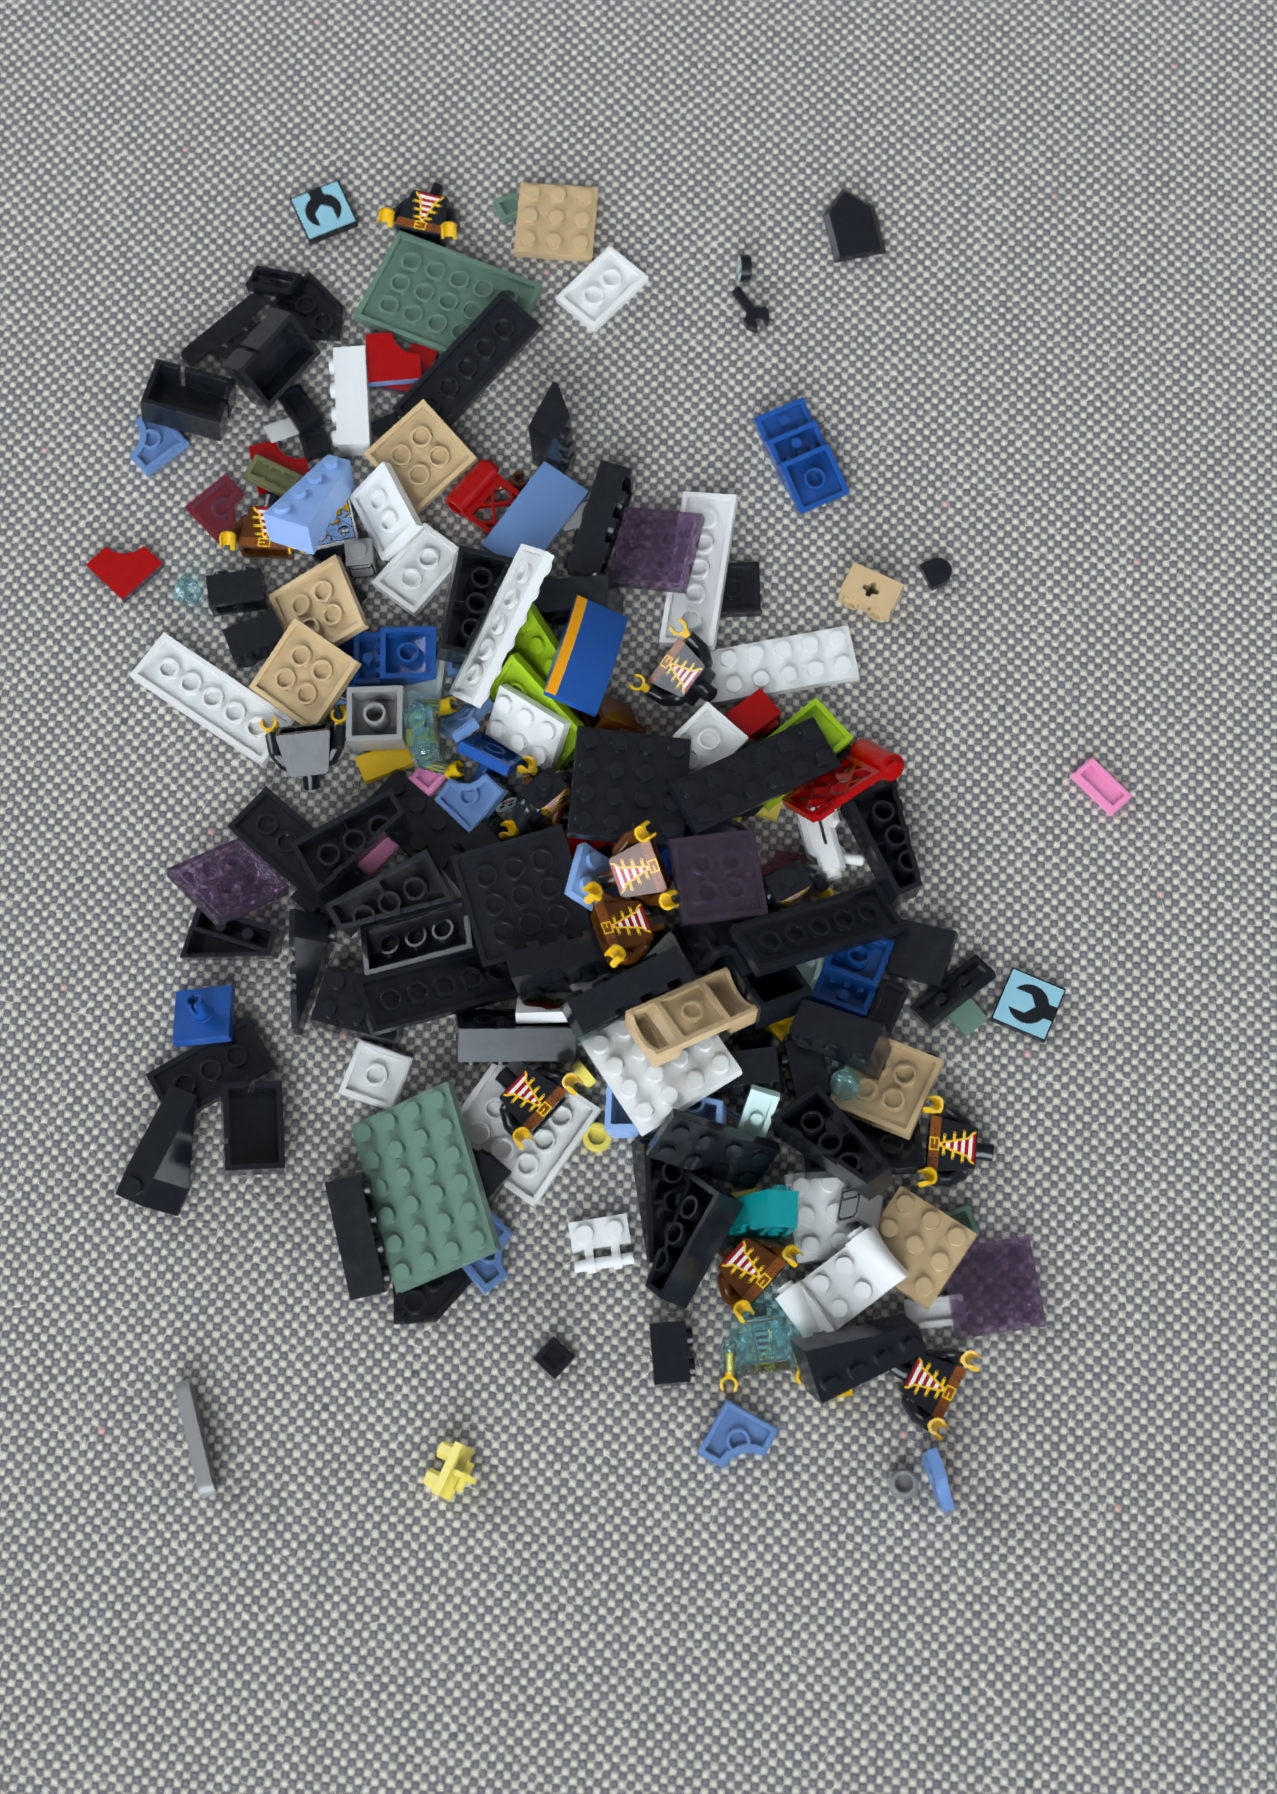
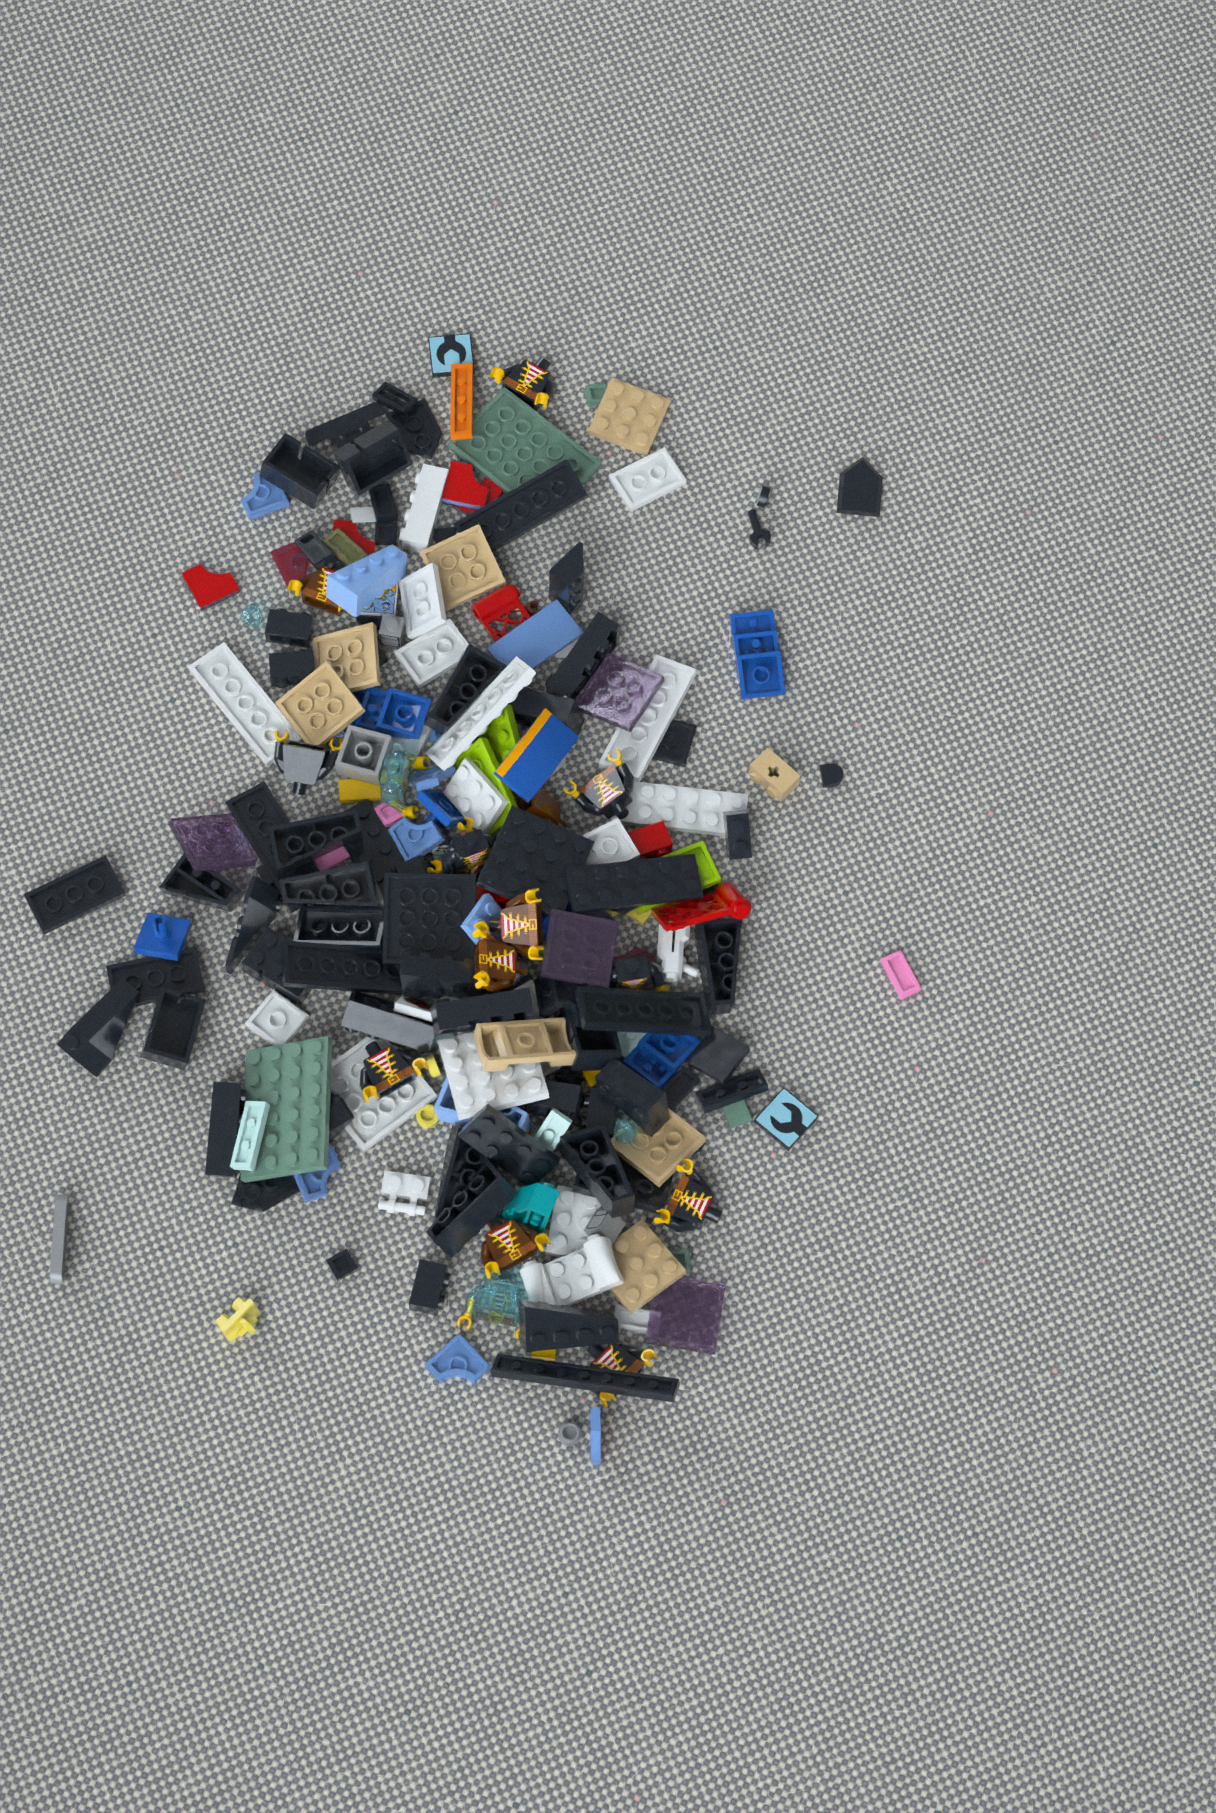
camera: 10 degrees right, 5 degrees down
(79, 997) = (74, 895): none -> black plate
(237, 488) = (314, 550): none -> black tile
(354, 261) = (461, 401): none -> orange plate
(391, 1235) = (250, 1135): none -> light aqua plate
(854, 677) = (737, 834): none -> black brick
(903, 1411) = (585, 1377): none -> black tile

